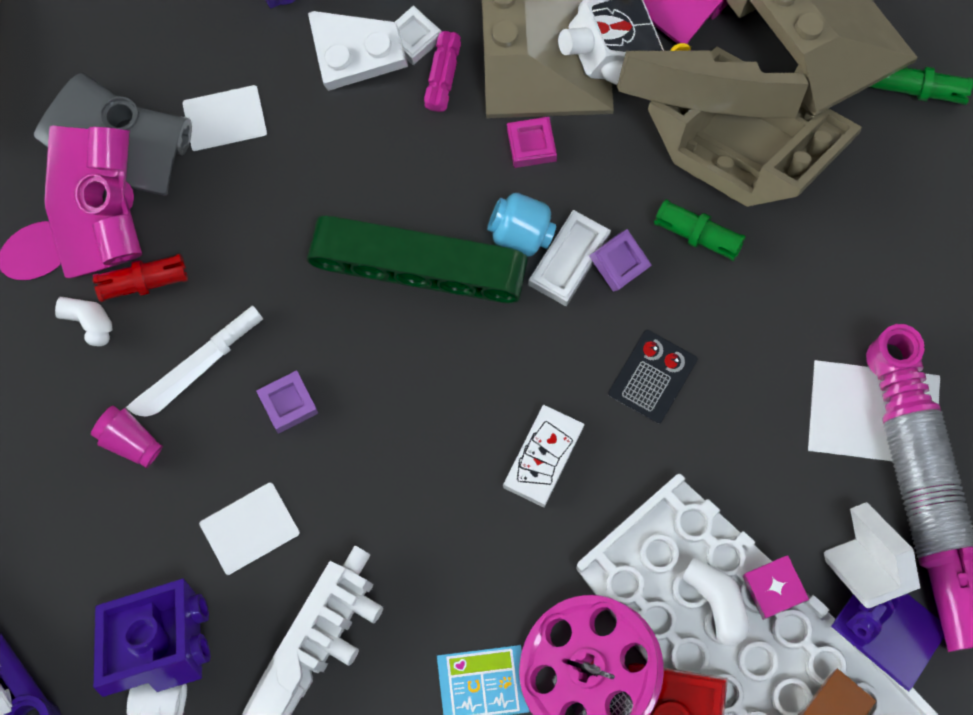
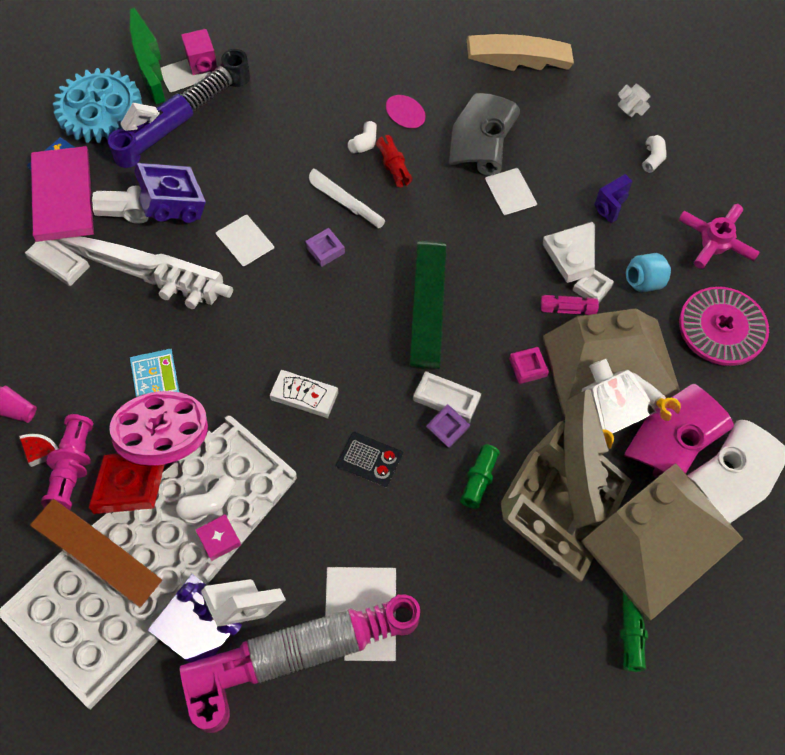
camera: 80 degrees right, 10 degrees down
(84, 228) = (438, 125): dark pink panel -> none
(125, 437) = (292, 167): dark pink cone -> none
(521, 224) = (462, 360): medium azure head -> none

